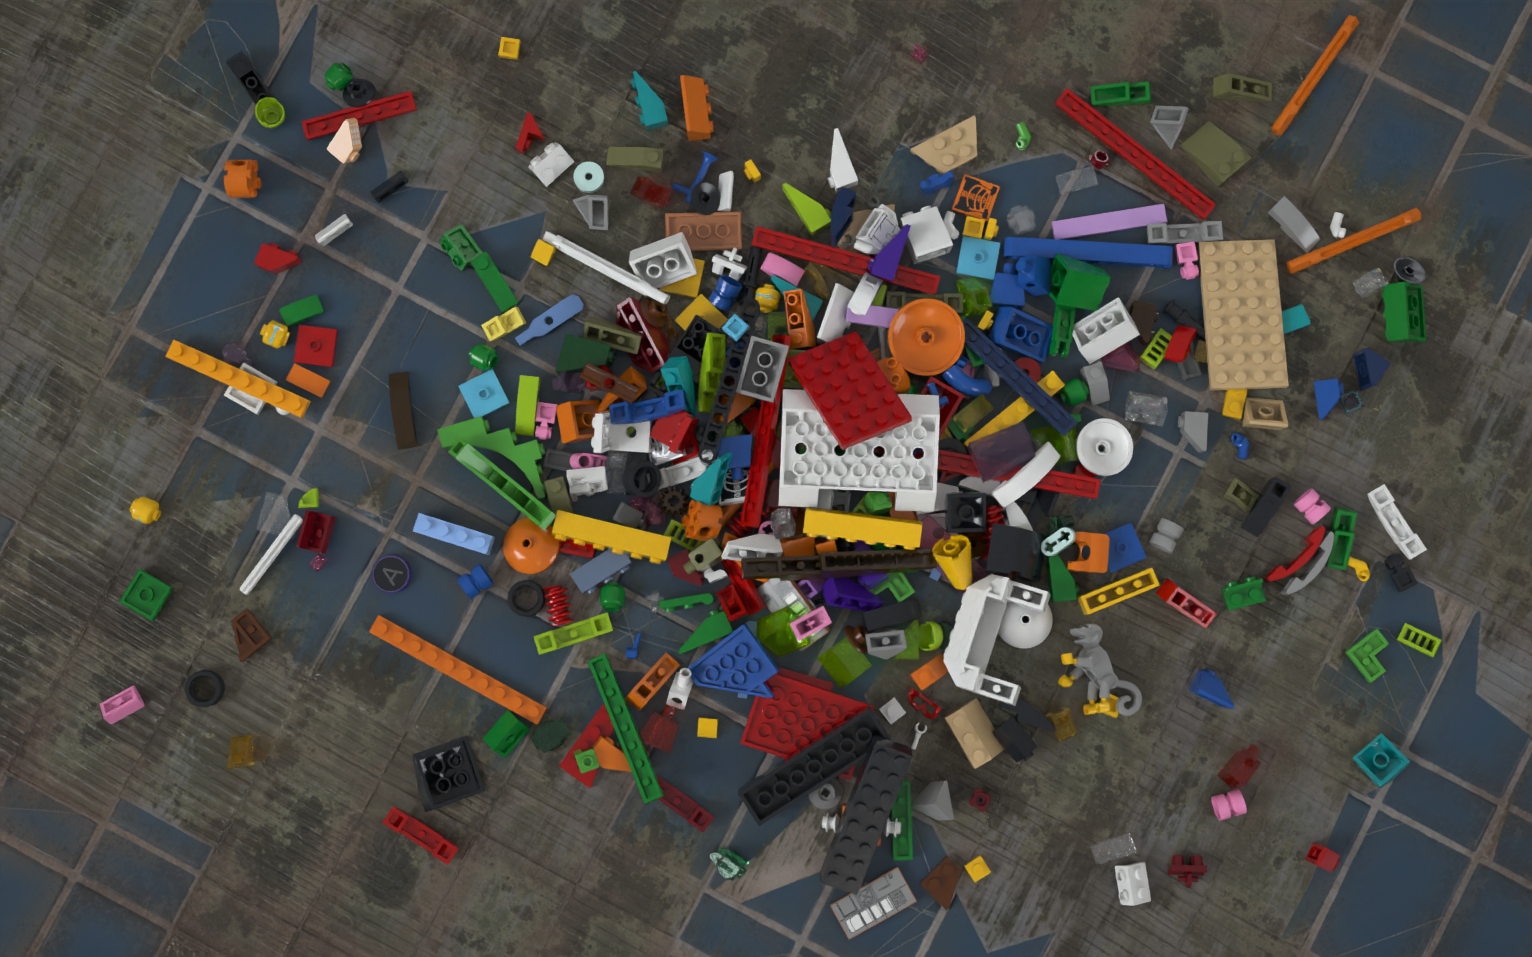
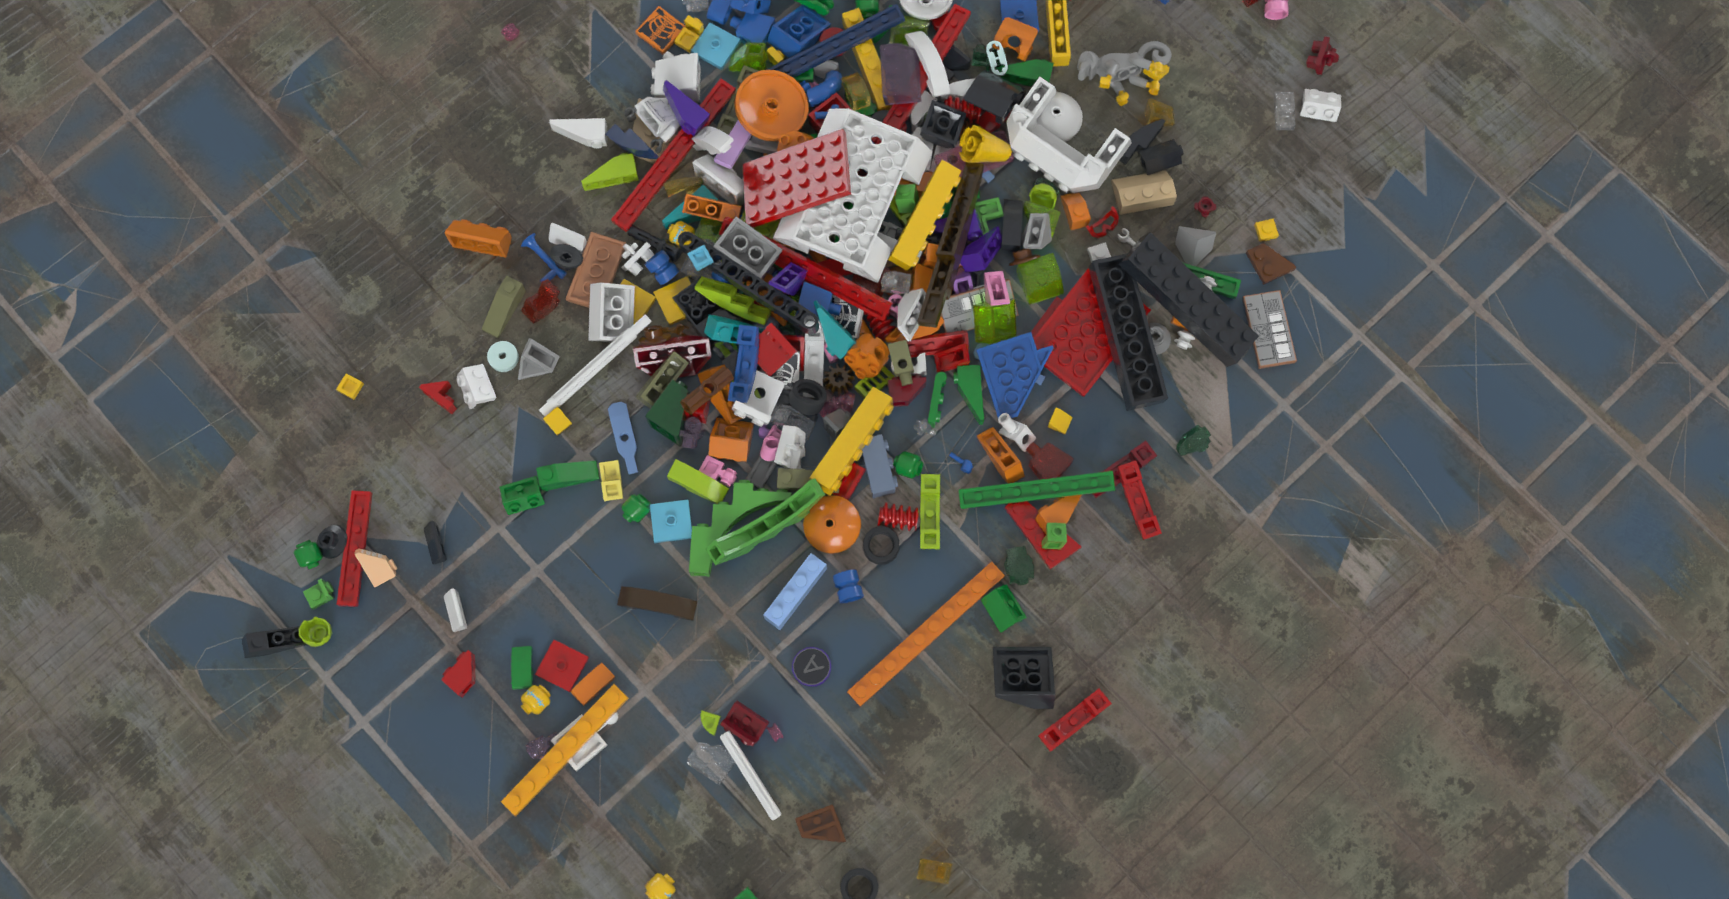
camera: 70 degrees left, 10 degrees down
(241, 178) = (369, 678): orange brick -> none
(307, 101) = (319, 594): none -> bright green bracket
(652, 106) = (459, 276): teal slope -> none
(652, 829) = (1138, 500): none -> red slope
(742, 419) = (789, 279): none -> dark purple slope
(751, 171) = (558, 208): yellow plate -> none
(782, 269) = (654, 215): bright pink slope -> none
(937, 182) = (633, 56): blue piece -> none
(951, 147) = (606, 35): tan wing -> none

